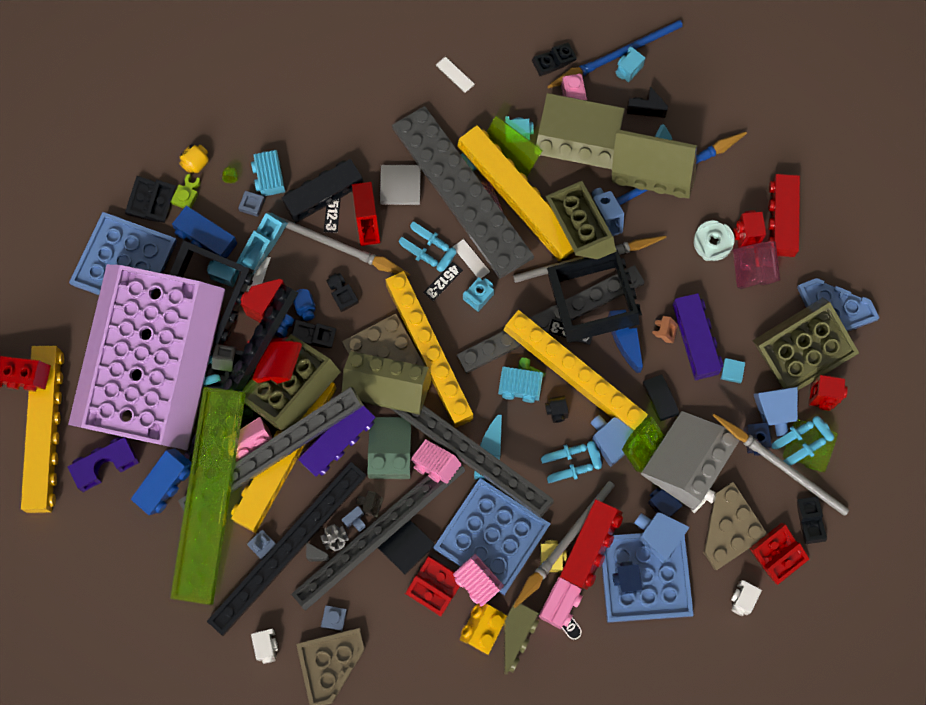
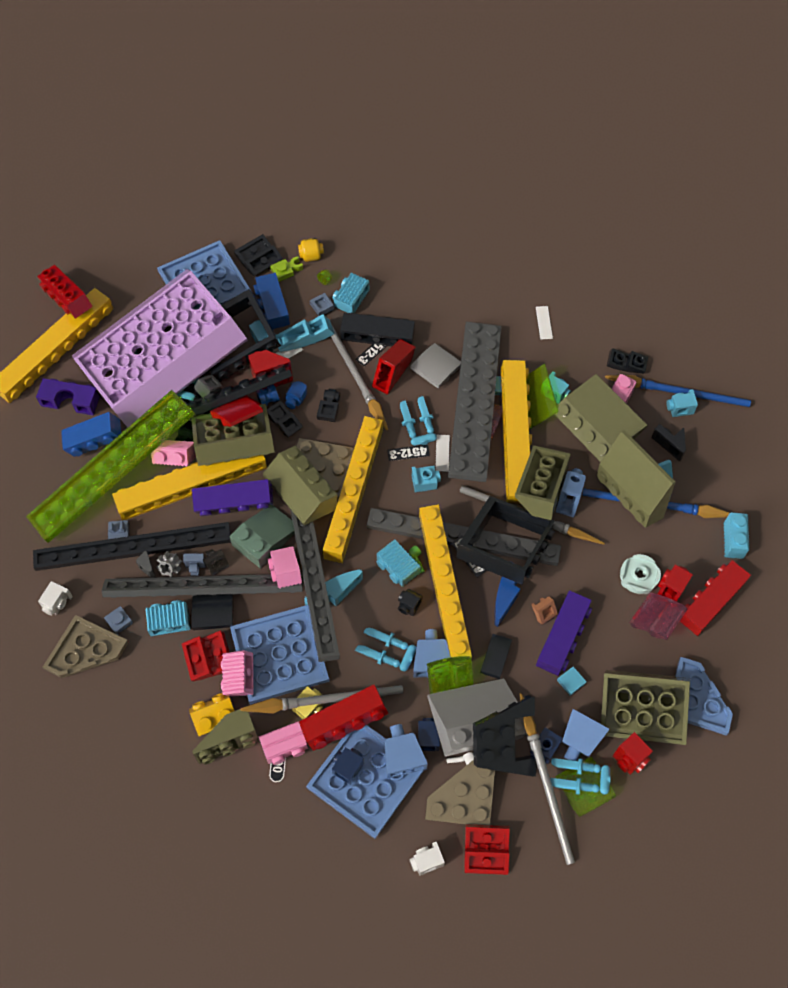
camera: 40 degrees right, 10 degrees down
(293, 438) = (200, 469): dark grey plate -> none
(376, 582) = (168, 618): none -> medium azure brick
(724, 464) = (496, 740): none -> black wing
(761, 149) = (736, 535): none -> medium azure brick
(811, 520) = (536, 845): black slope -> none

